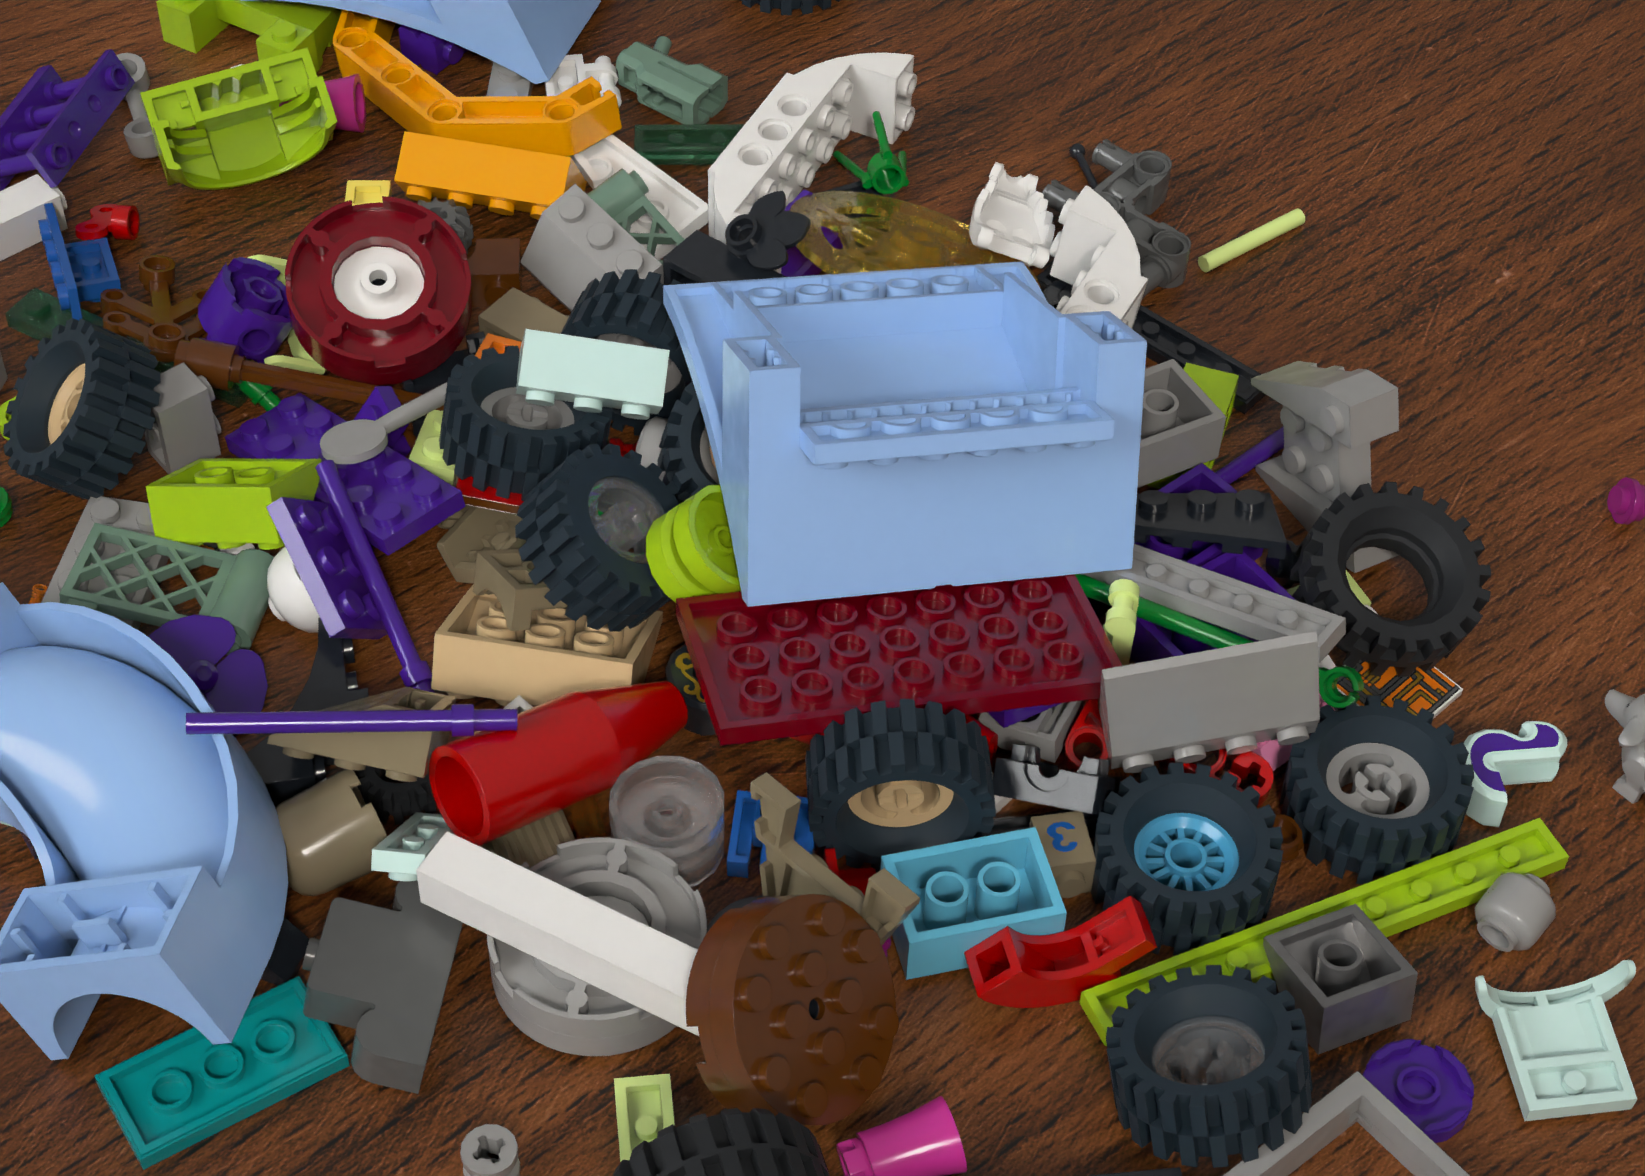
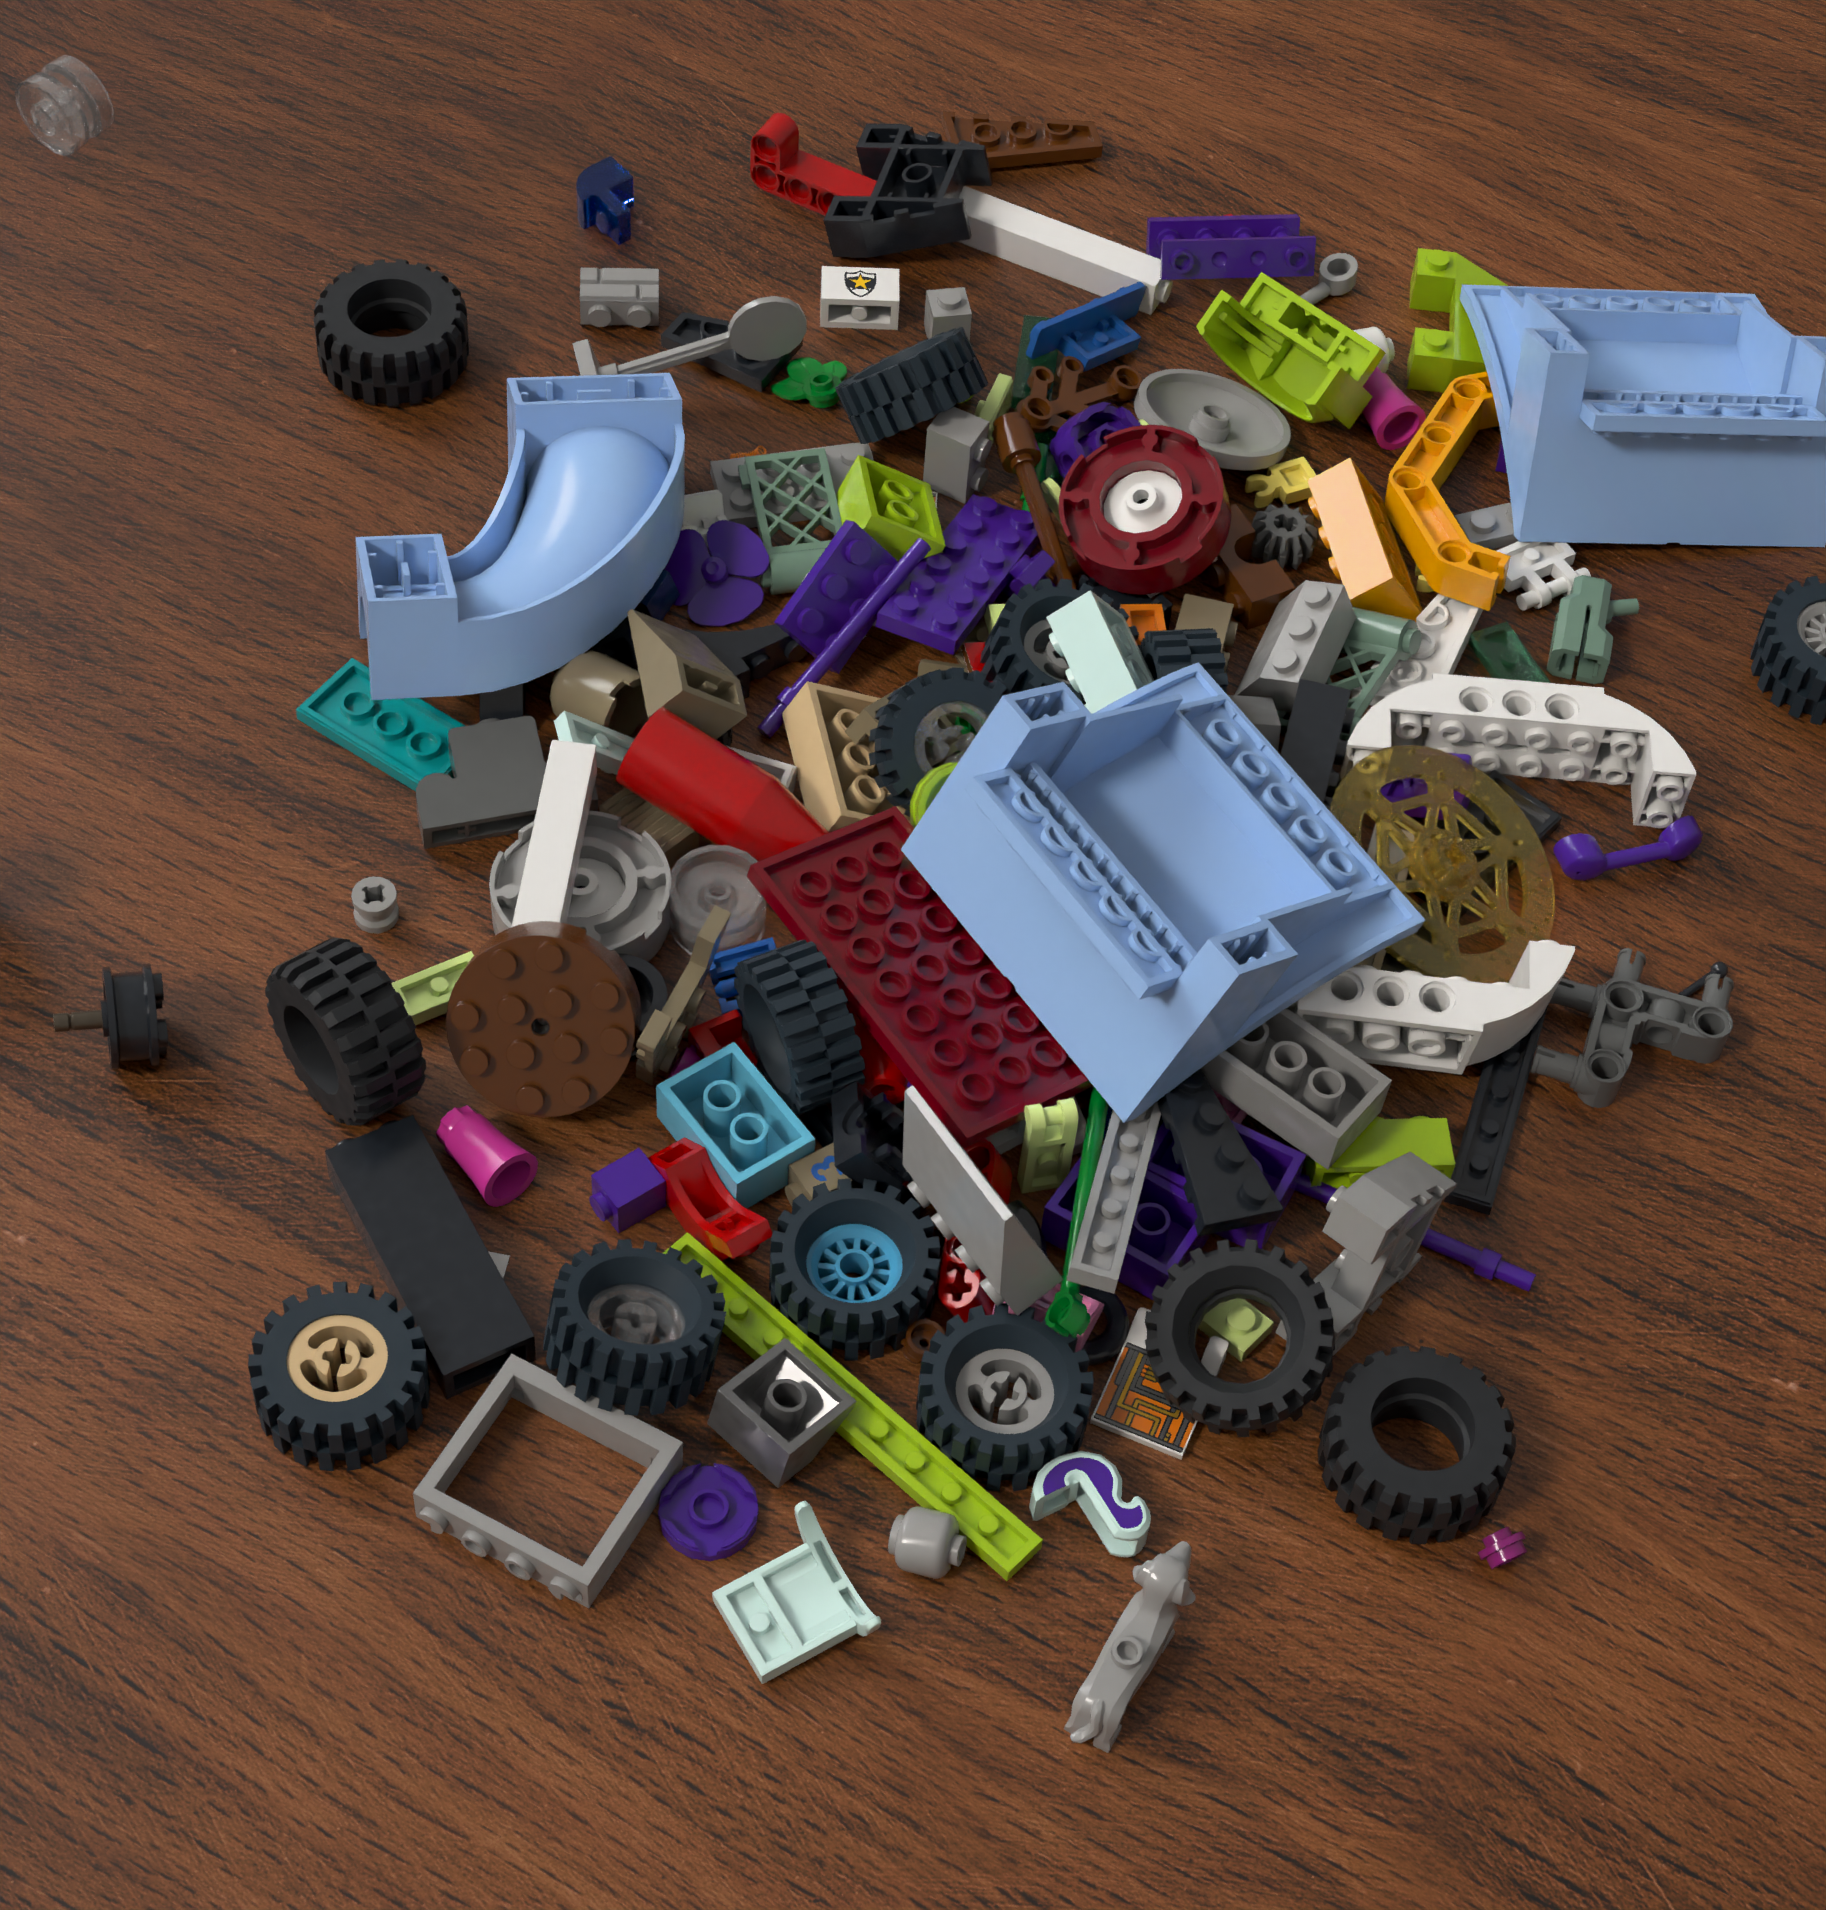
camera: 65 degrees right, 5 degrees up
(114, 218) = (1166, 336): red piece -> none
(253, 218) = (1222, 414): none -> light grey dish
(365, 438) = (985, 561): light grey piece -> none
(460, 720) = (681, 702): dark purple bar -> none
(766, 232) = (1359, 731): black plate -> none
(884, 170) = (1566, 815): green plant -> none
(930, 176) = (1584, 860): none -> dark purple piece
(1004, 1030) = (627, 1191): none -> dark purple brick
(1013, 218) = (1578, 921): white animal -> none
(1251, 240) = (1686, 1146): yellowish green bar -> none
(1541, 473) = (1430, 1391): none -> black tyre

